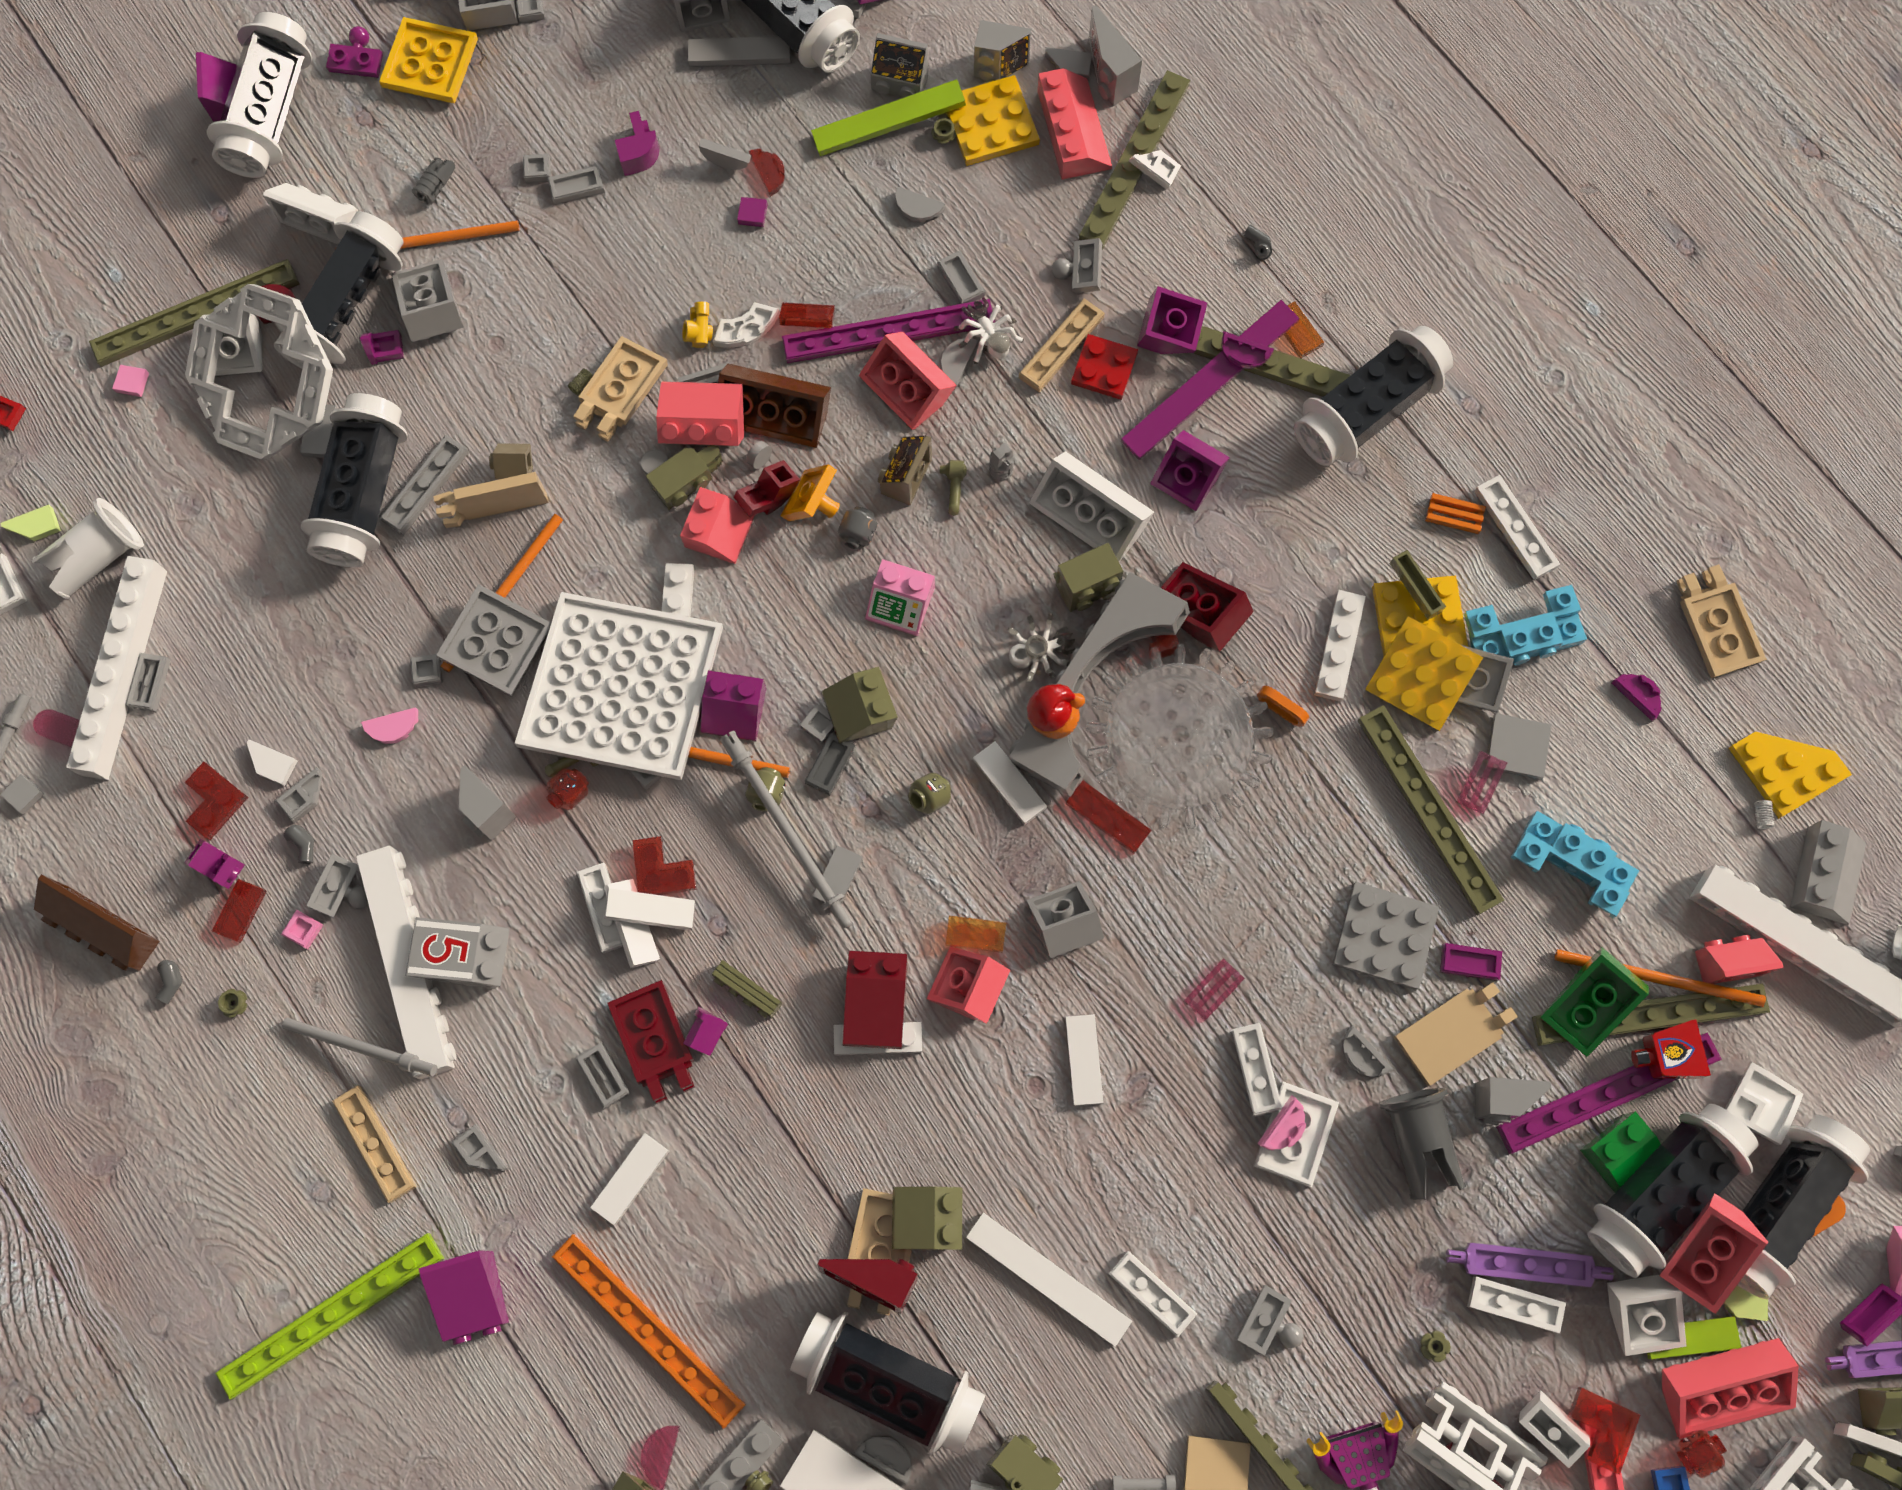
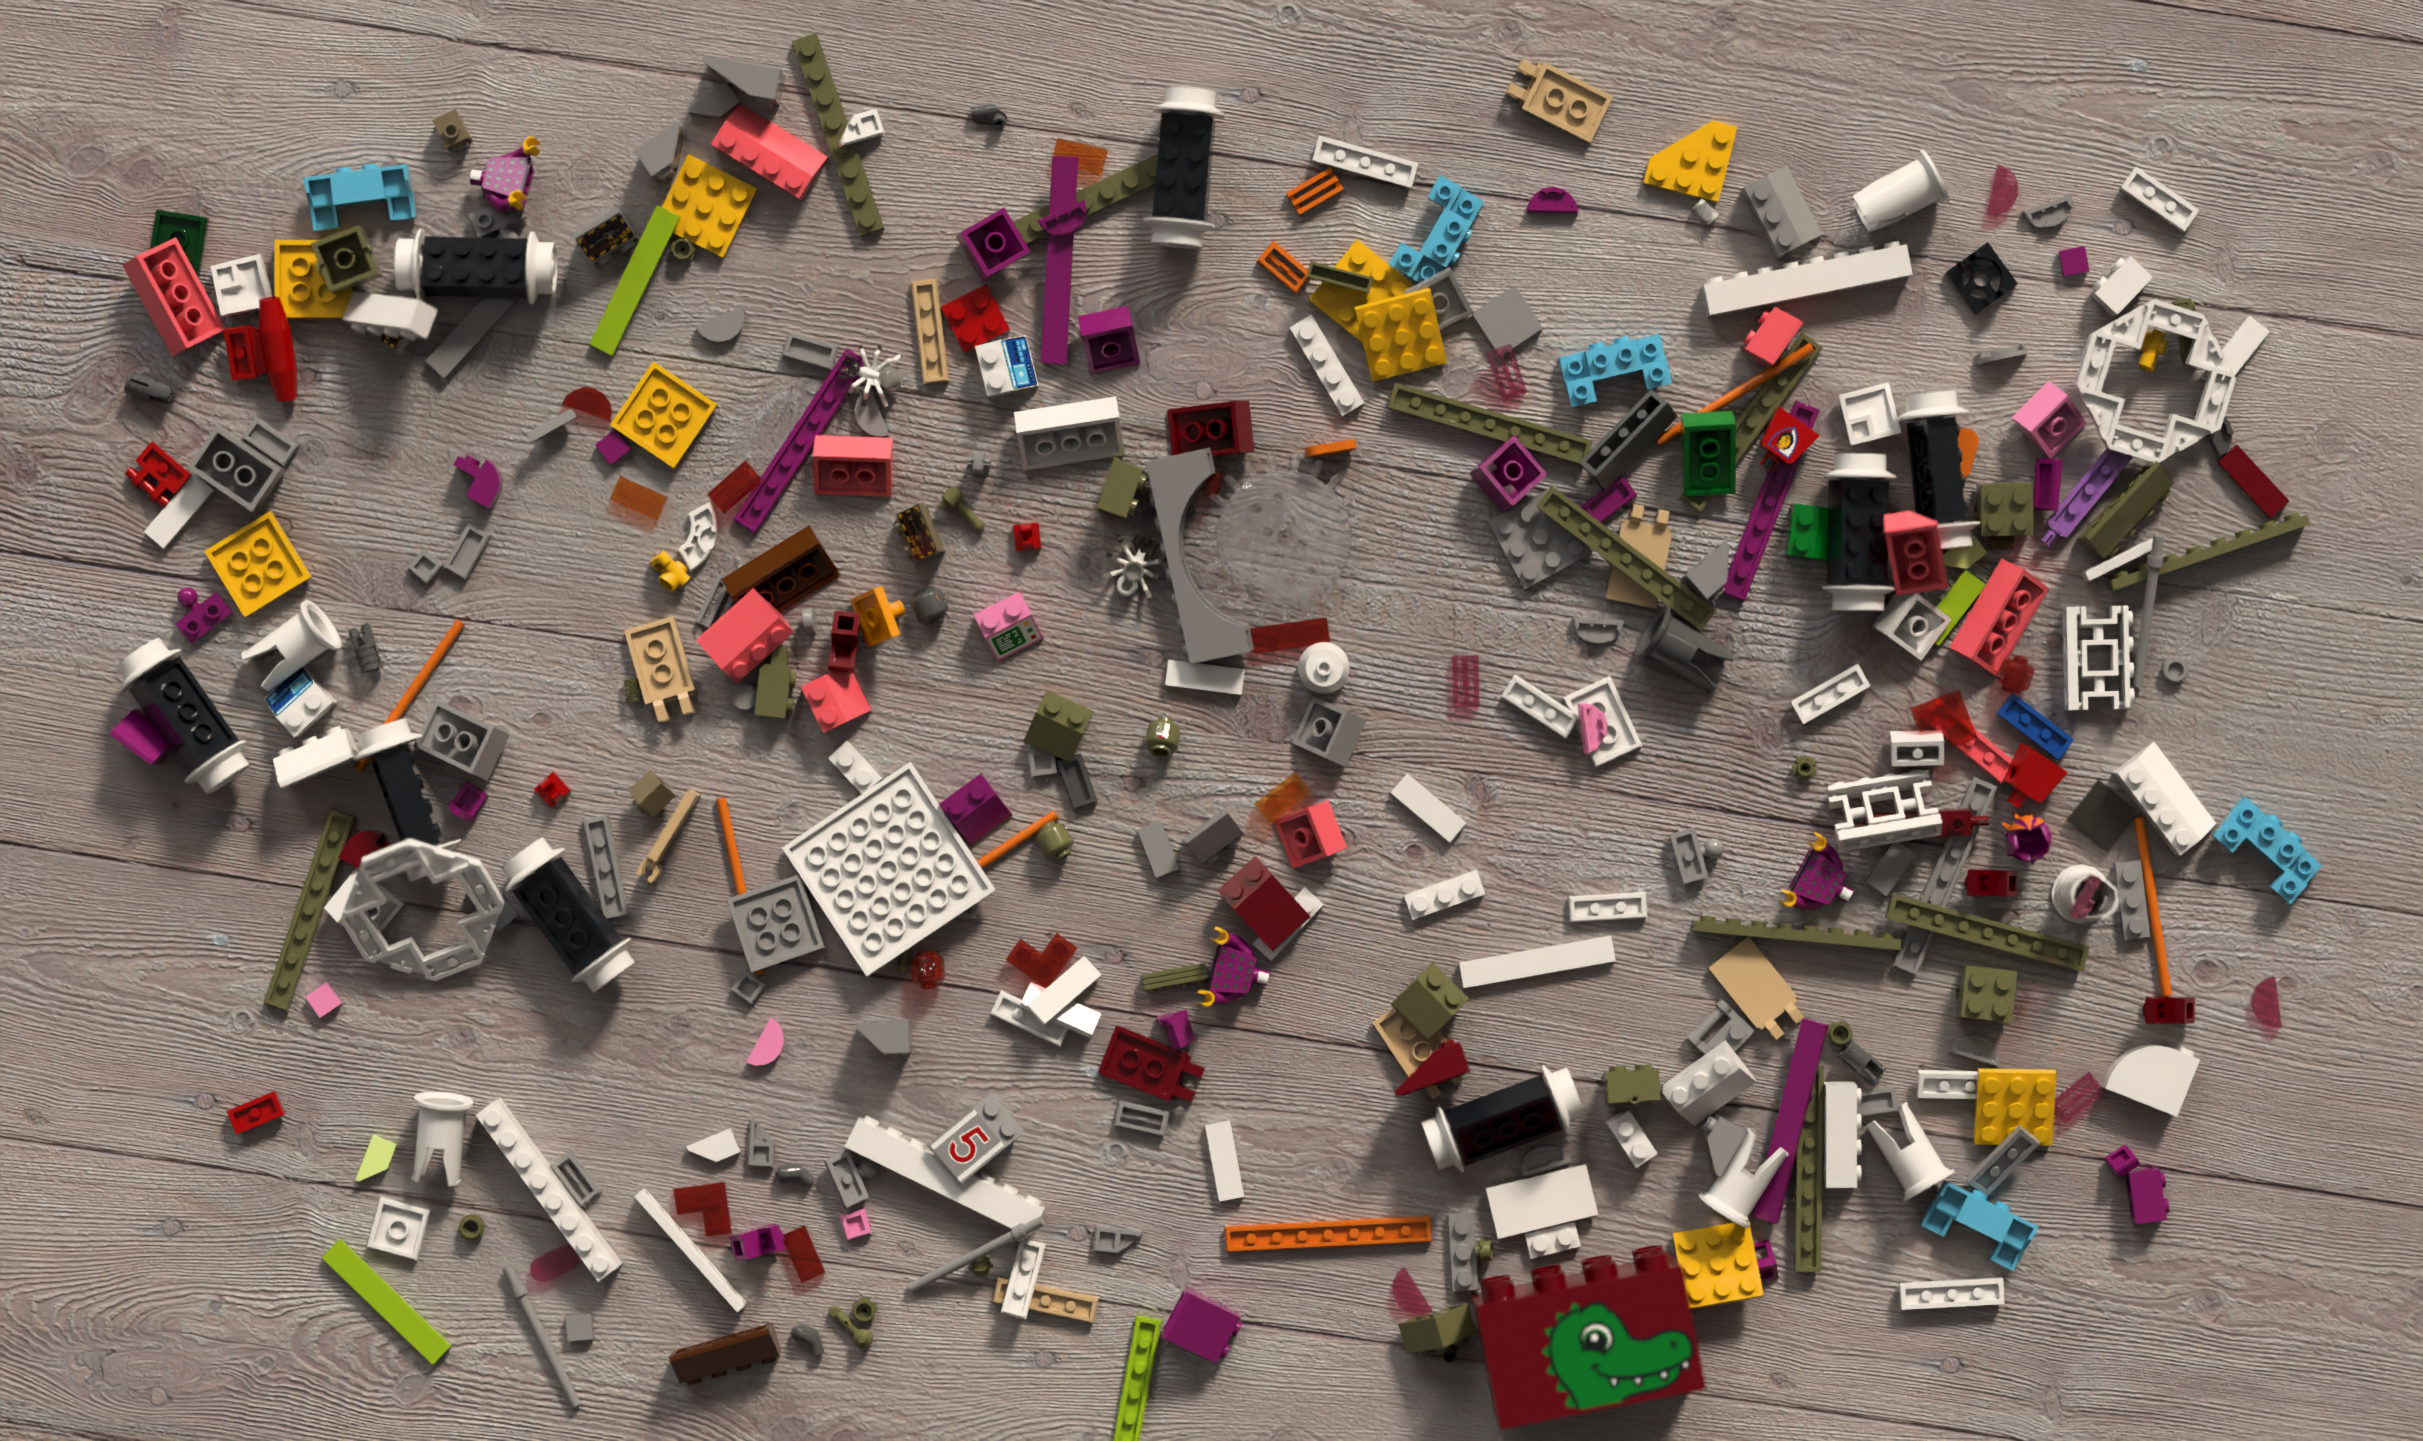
camera: 50 degrees left, 15 degrees up
(31, 635) = (466, 1233): none -> olive plate
(162, 820) = (690, 1249): none -> white tile
(207, 1022) = (861, 1337): none -> olive piece
(350, 173) = (299, 701): none -> white slope
(355, 1062) = (981, 1266): none -> olive plate
(373, 1106) = (1023, 1279): none -> white tile
(390, 126) = (298, 640): none -> white piece
(450, 394) = (552, 789): none -> red tile
(732, 261) = (638, 498): none -> clear orange tile
(743, 760) = (1026, 840): light grey bar -> none
(795, 1028) = (1232, 970): none -> magenta torso
(811, 222) = (663, 414): none -> yellow plate
(890, 906) = (1213, 836): none -> light grey slope
(982, 551) = (1027, 536): none -> red tile
(1027, 1144) = (1444, 894): none -> white plate
(1054, 710) = (1192, 608): red piece -> none
(1085, 266) = (888, 257): light grey plate -> none
(1092, 416) = (1006, 366): none -> slope
(1110, 866) = (1323, 667): none -> white cone
(1379, 567) = (1267, 253): none -> orange tile
(1408, 858) = (1508, 474): none -> magenta slope
(1446, 1019) = (1626, 558): none -> olive plate
(1529, 1264) = (1816, 661): medium lavender plate -> none
(1536, 926) = (1628, 439): none -> dark grey brick
(1779, 1316) = (1995, 540): none -> olive piece
(1821, 1299) = (2004, 508): none -> olive brick

